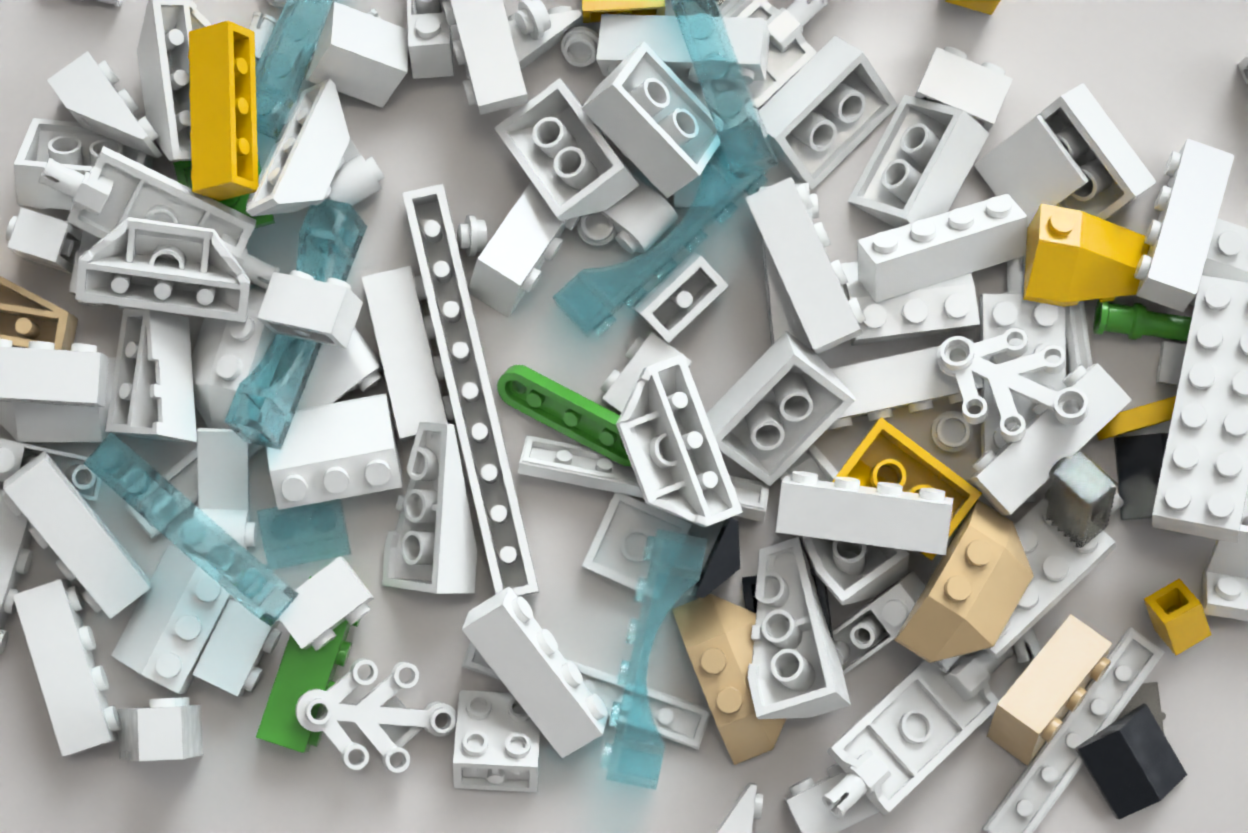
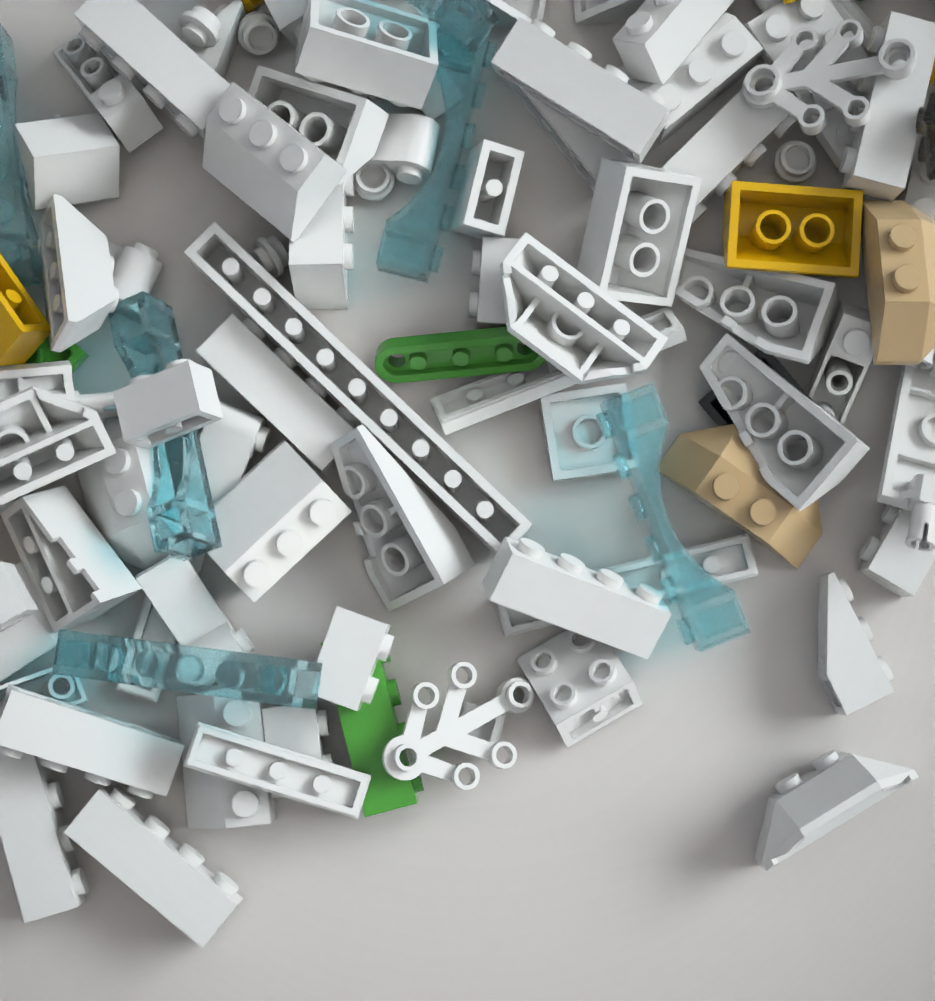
camera: 30 degrees left, 0 degrees up
(161, 732) = (277, 868): white wedge -> none
(210, 655) = (277, 770): none -> white tile
(303, 534) = (290, 610): clear light blue plate -> none
(515, 165) = (267, 162): none -> white slope
(722, 560) = (676, 392): black slope -> none
(864, 514) = (778, 270): white brick -> none

